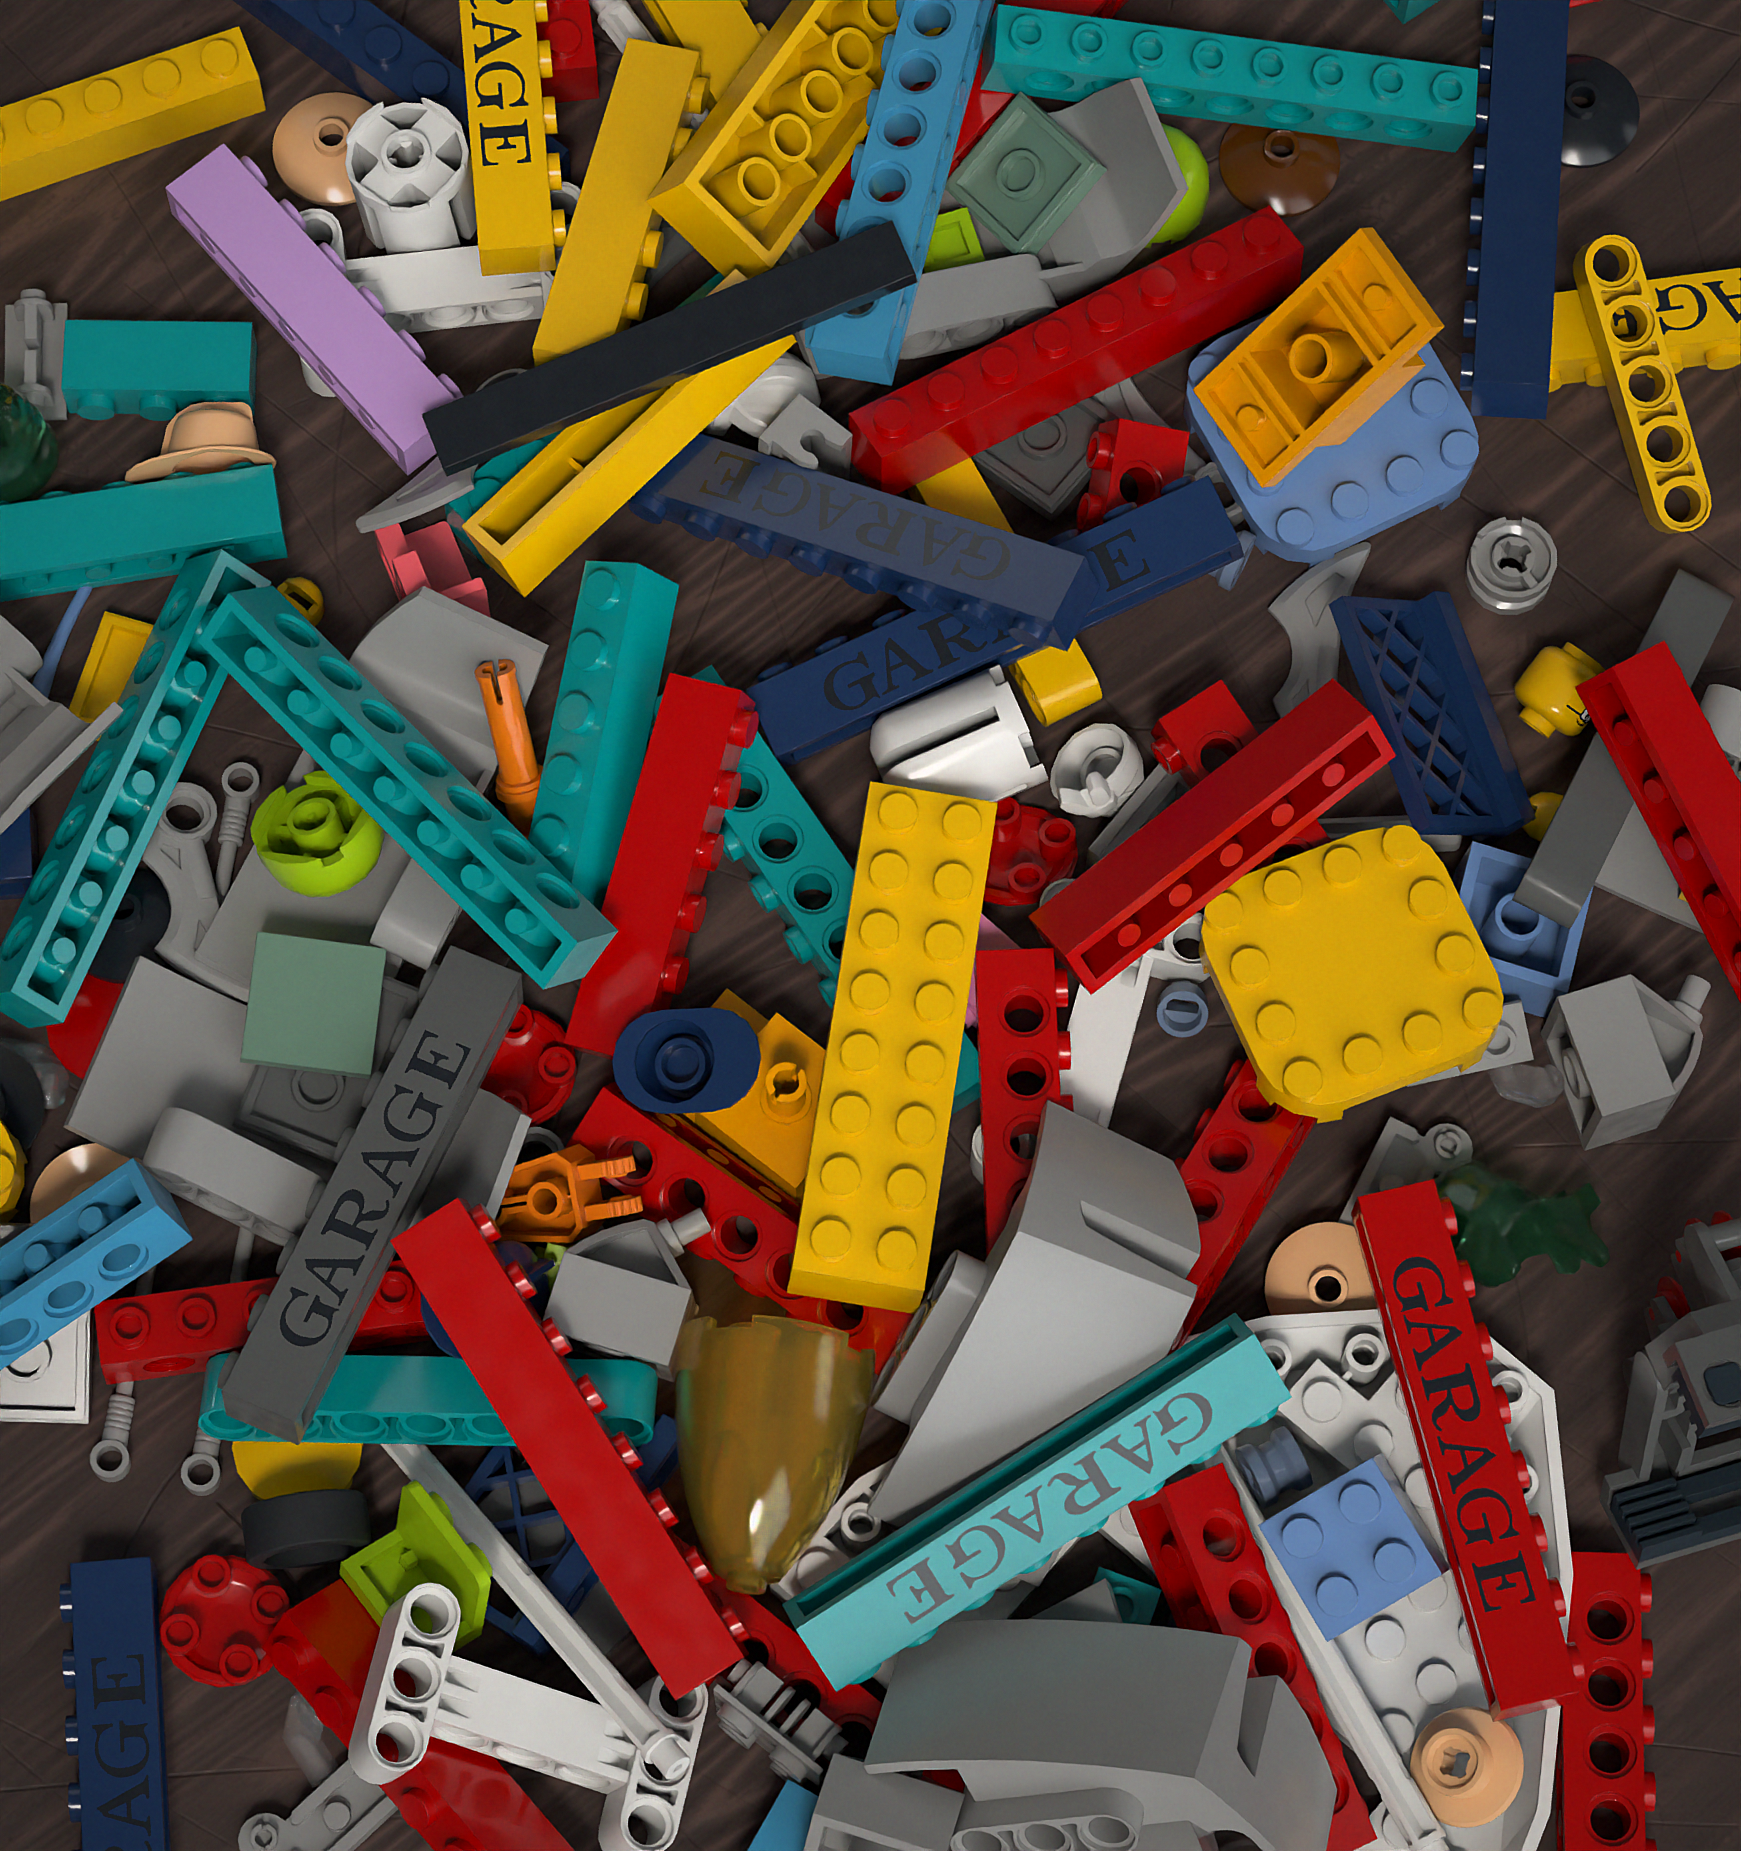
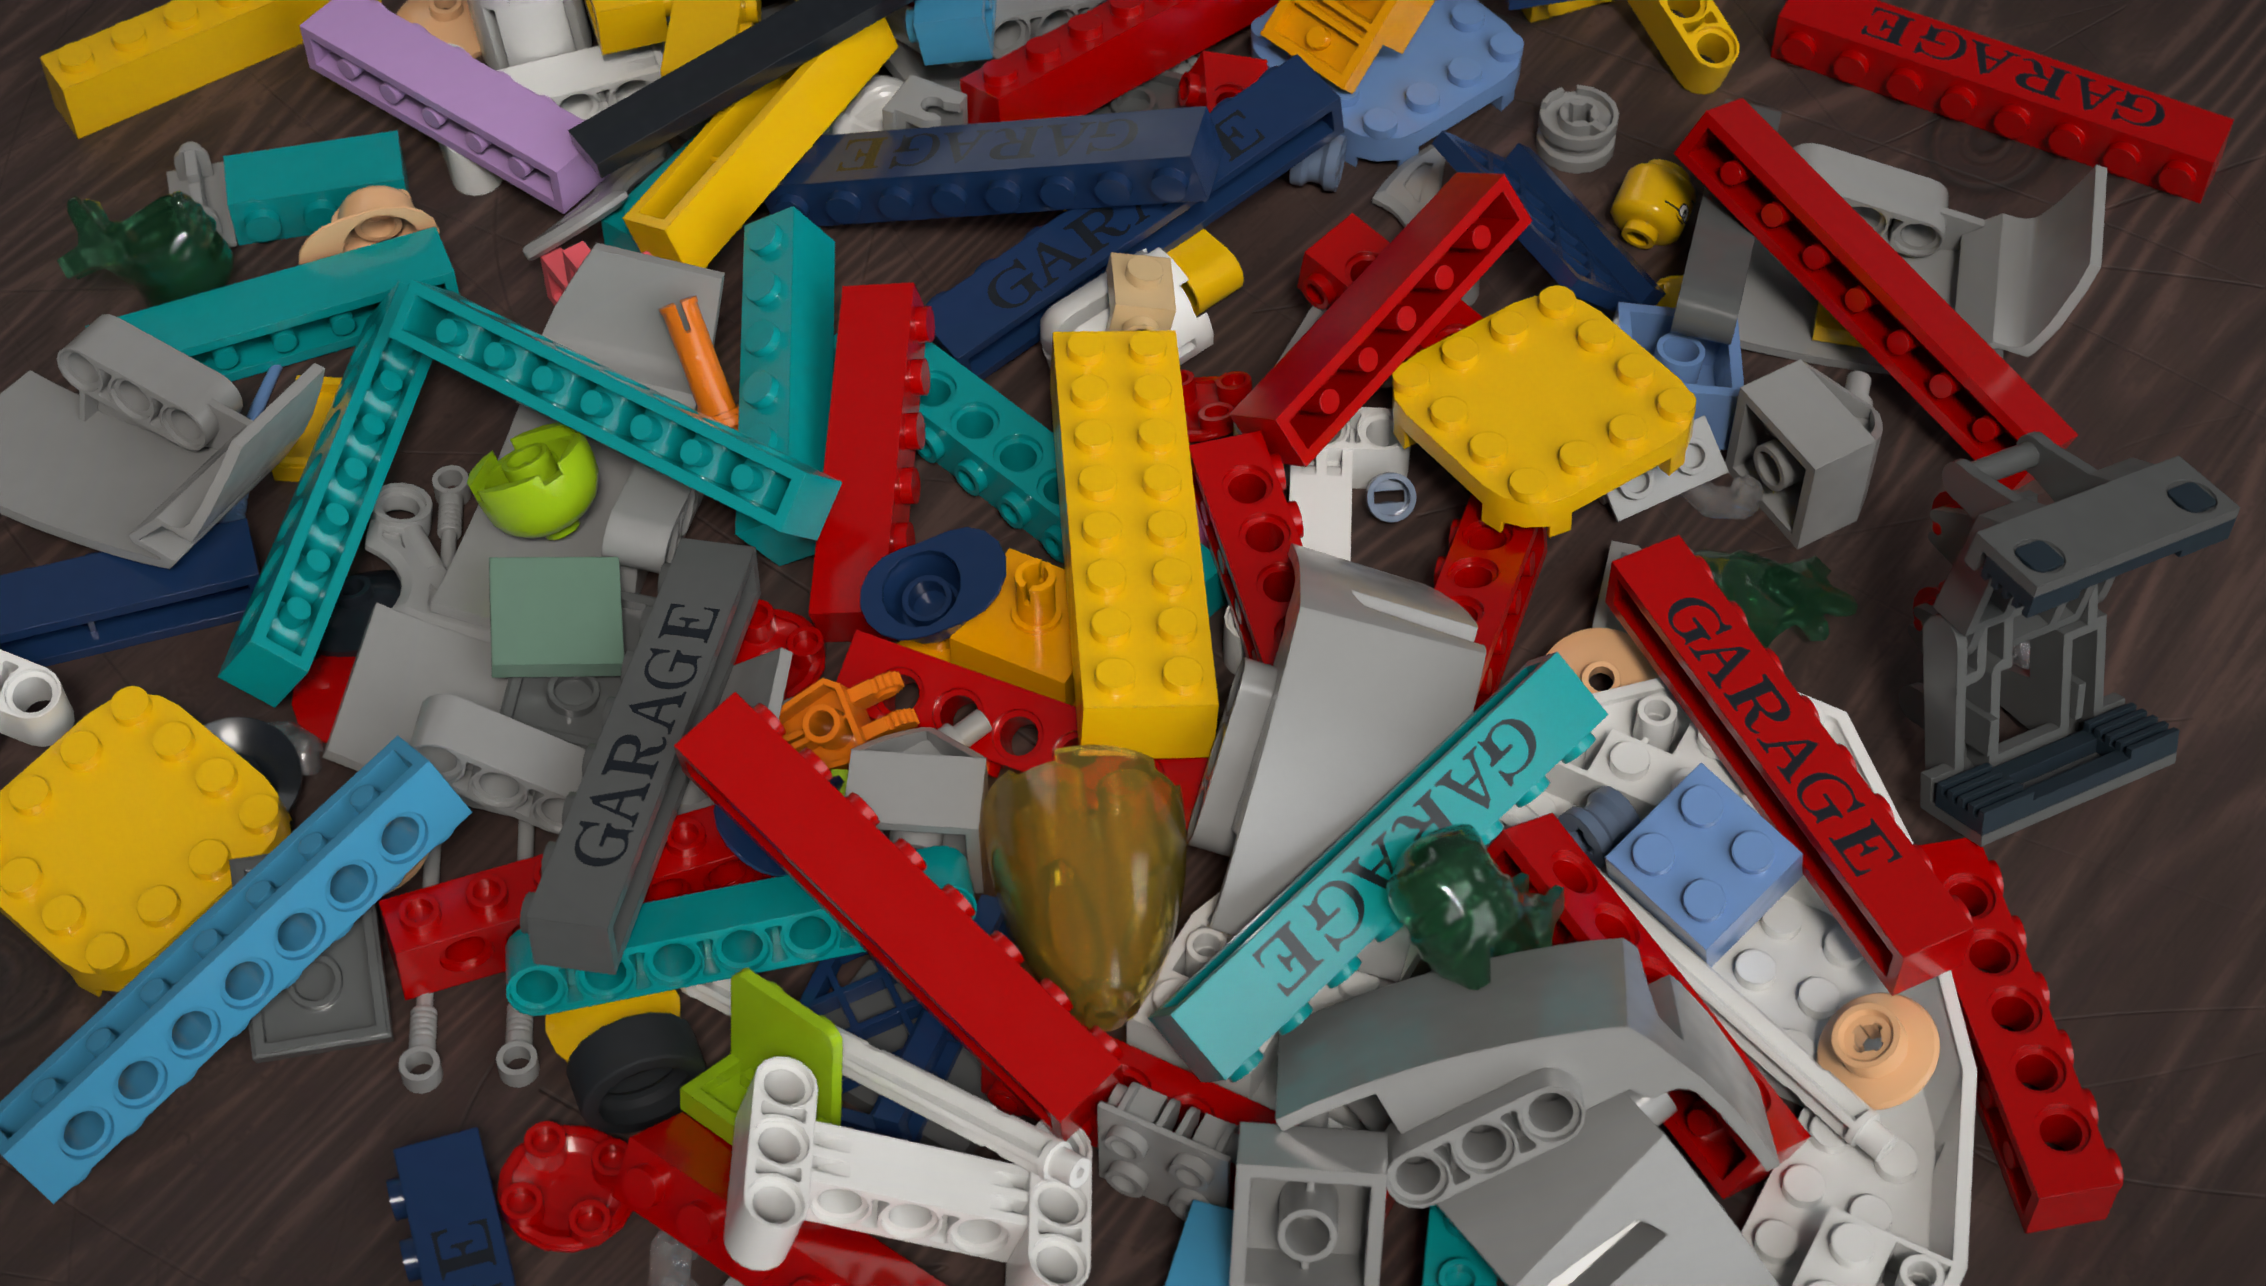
camera: 10 degrees left, 20 degrees down
(971, 751) = (1140, 293): none -> tan bracket
(1094, 1560) = (1463, 904): none -> clear green piece
(1097, 771) = (1257, 329): white piece -> none

